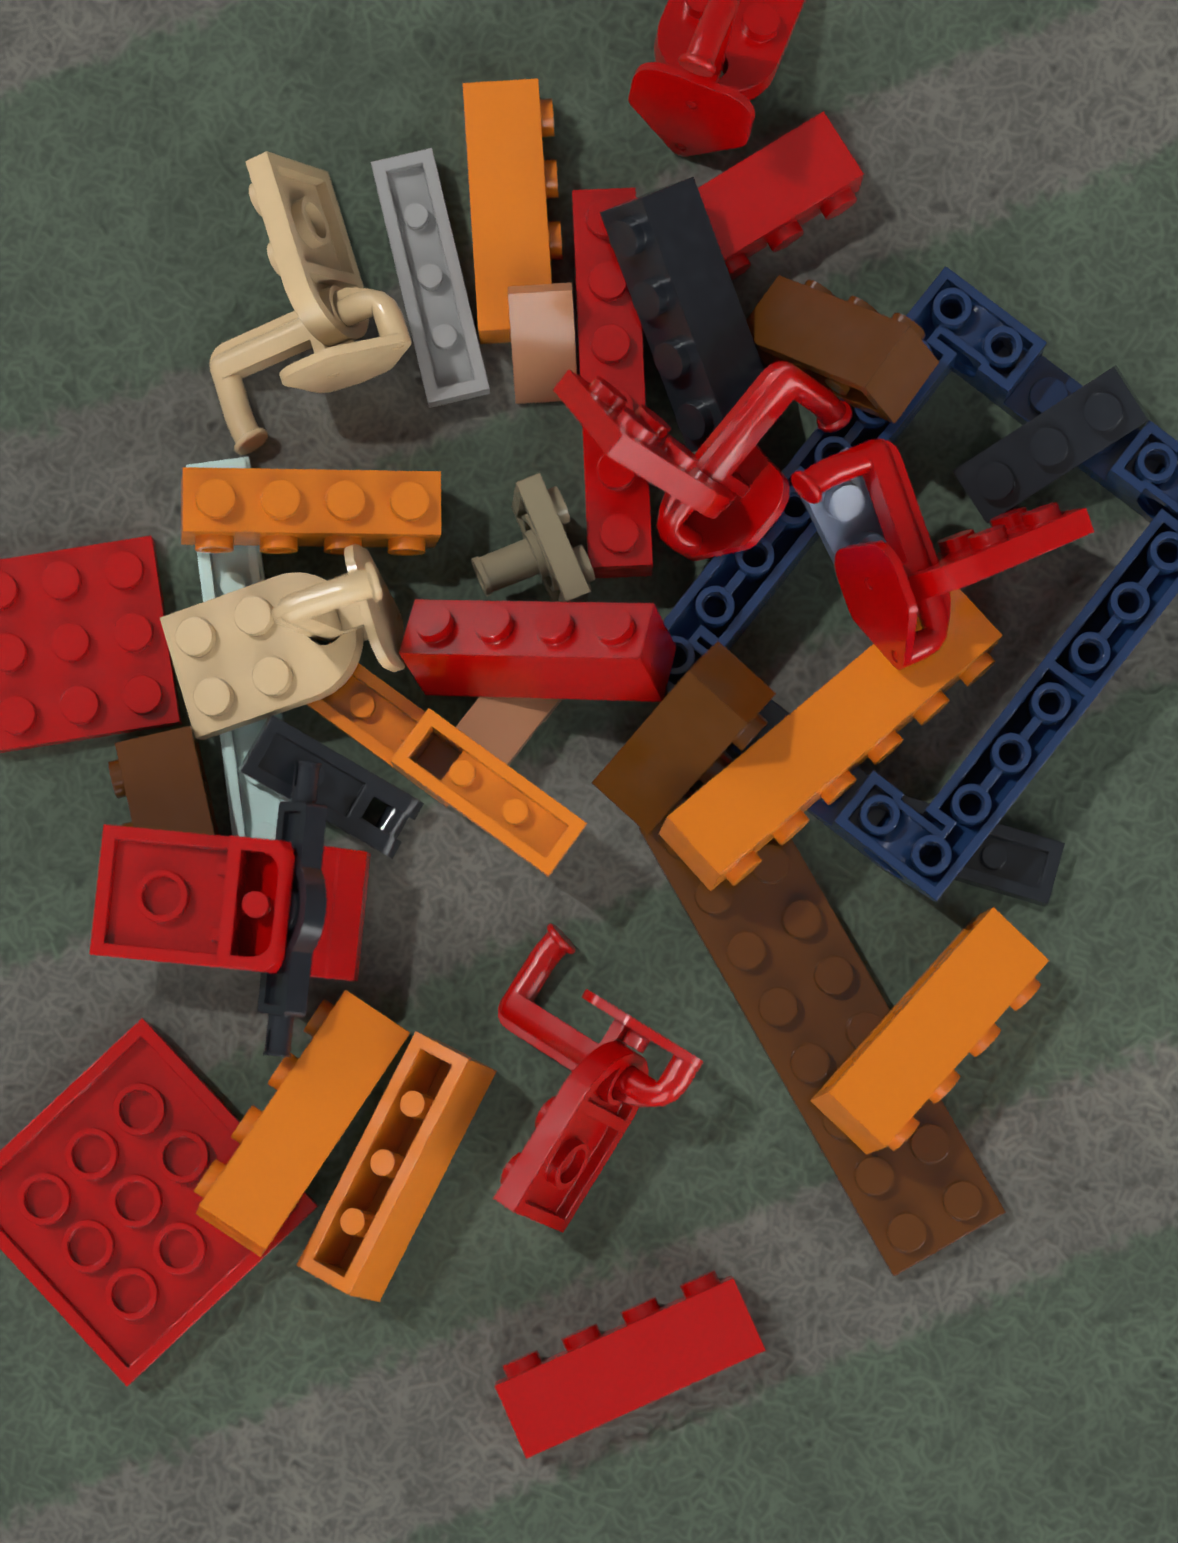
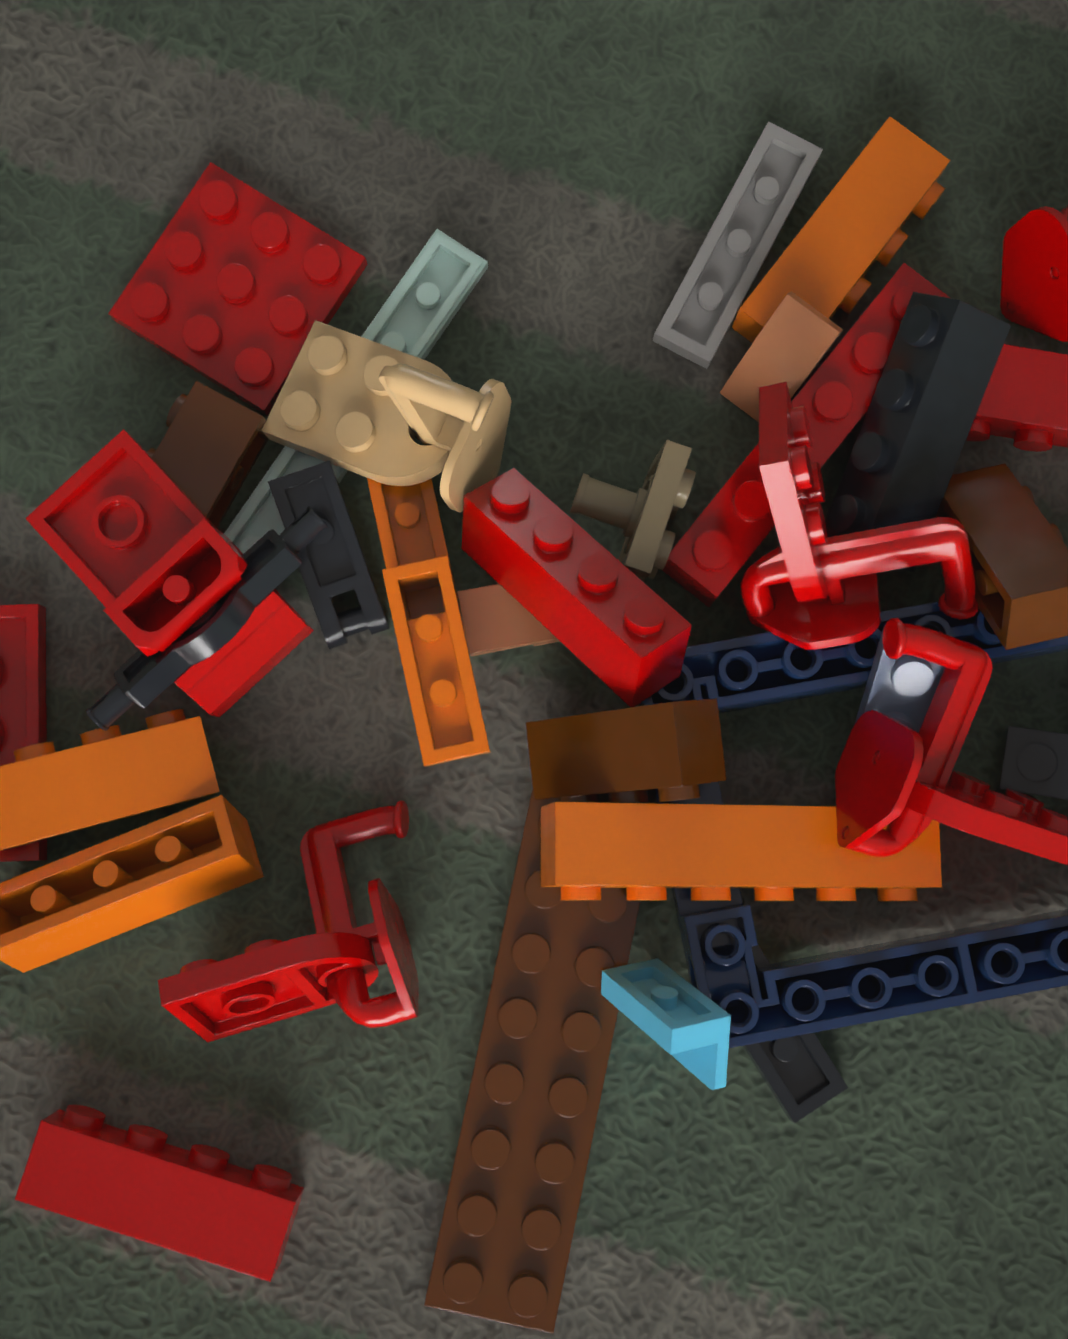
camera: 40 degrees right, 0 degrees up
(310, 509) = (493, 331): orange brick -> none
(327, 296) = (622, 217): tan plate -> none
(889, 899) = (673, 1016): none -> medium azure panel
(931, 1032) = (615, 1149): orange brick -> none

